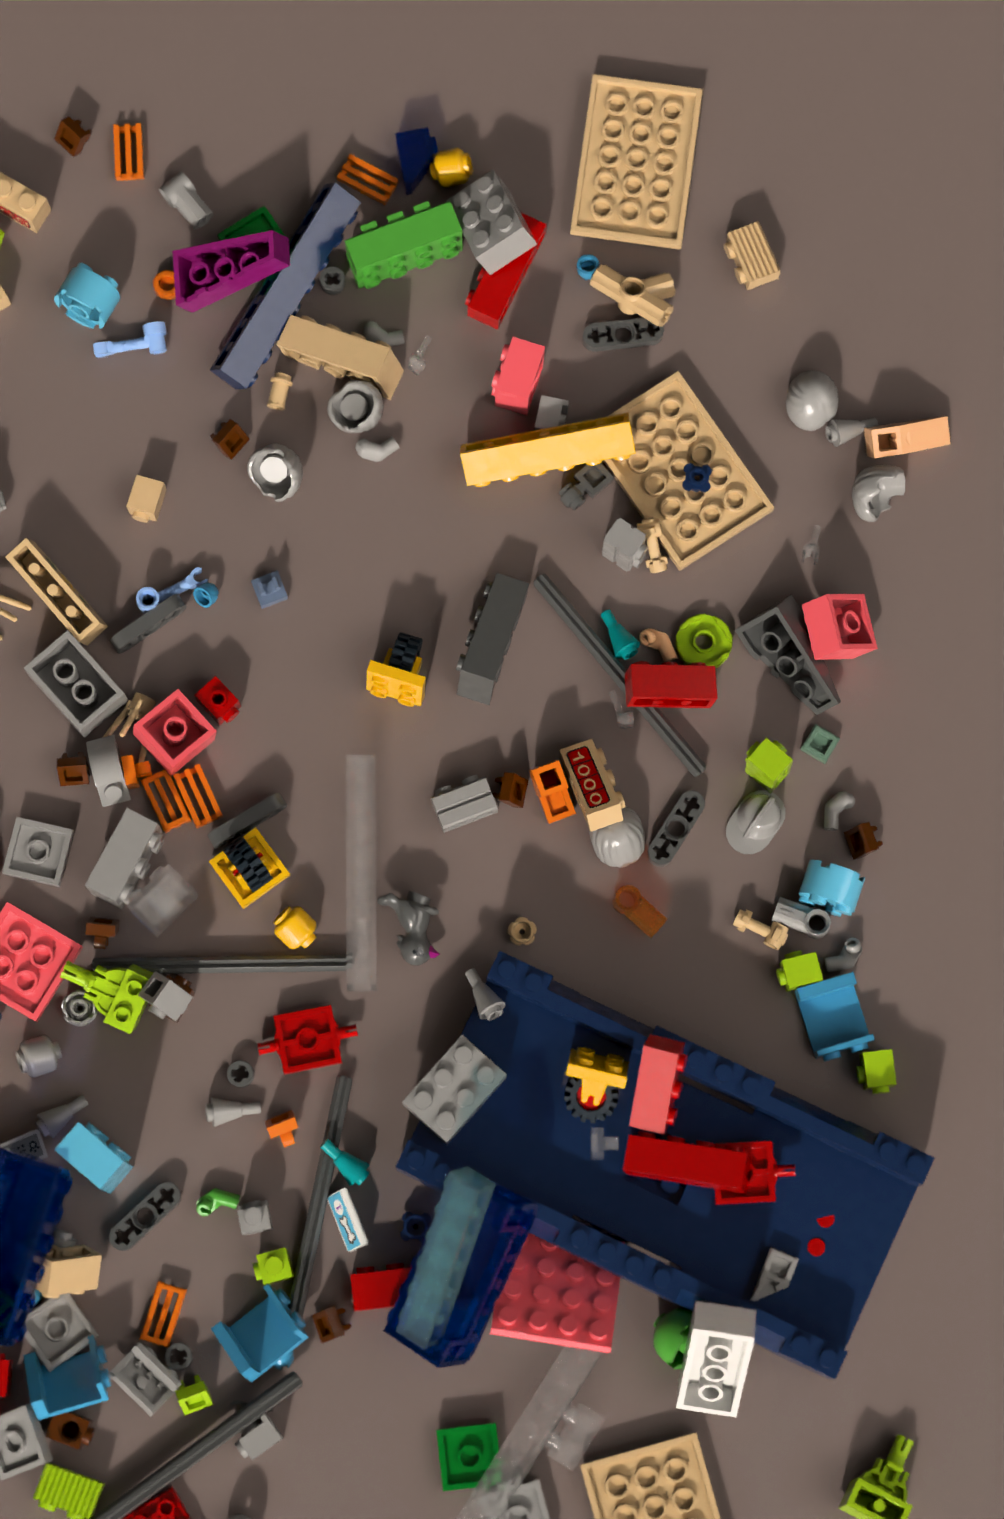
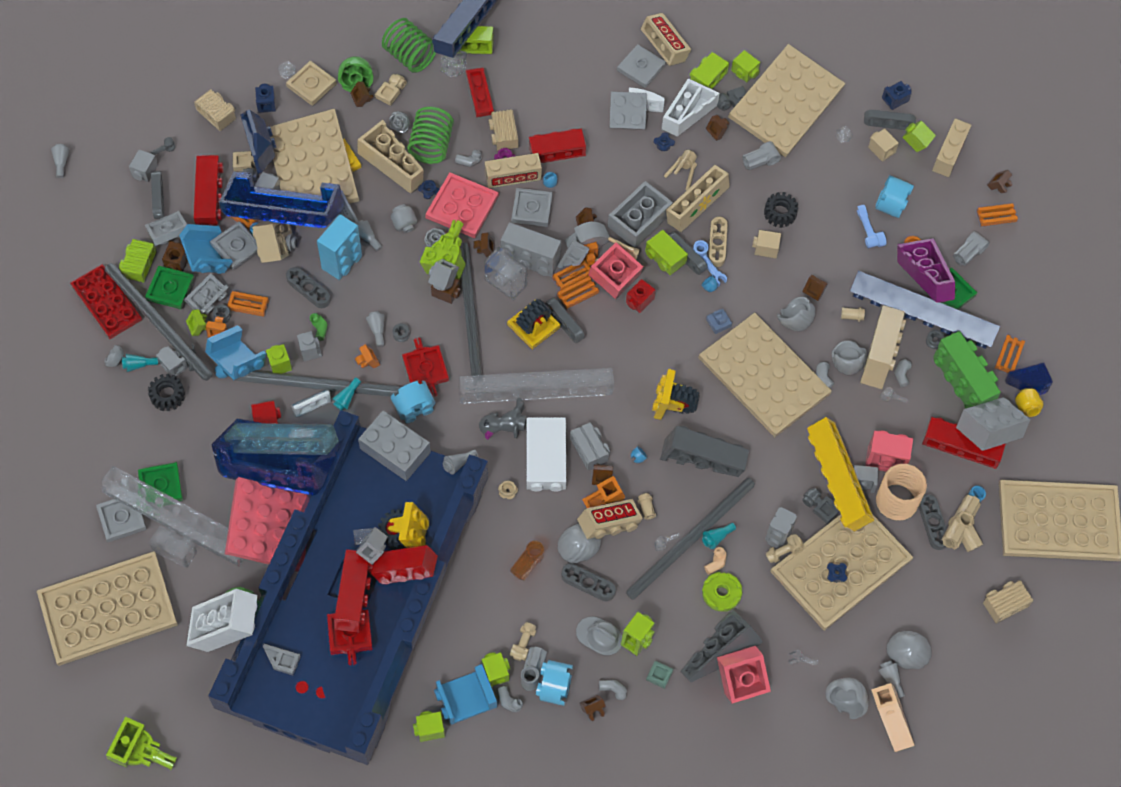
camera: 85 degrees right, 15 degrees down
(91, 485) = (781, 200): none -> black tyre
(108, 576) = (716, 235): none -> tan beam
(123, 1439) = (169, 287): none -> green plate
(139, 791) = (573, 255): none -> light grey tile
(148, 653) = (666, 252): none -> lime brick
(210, 1362) = (215, 327): none -> orange tile
(254, 1499) = (134, 362): none -> teal cone
(294, 1452) = (162, 383): none -> black tyre
(295, 927) = (497, 353): yellow head -> none
(329, 1324) = (243, 395): reddish brown tile -> none
(365, 535) = (764, 374): none -> tan plate
(370, 1059) = (413, 401): none -> medium azure brick
(471, 869) = (546, 454): none -> white brick
(483, 733) = (639, 454): none -> dark azure hinge
(566, 731) = (645, 501): none -> tan pin
(590, 344) = (906, 476): none -> light nougat piece
(625, 1128) = (372, 545): none -> light grey brick
(670, 685) = (686, 566): red brick -> none

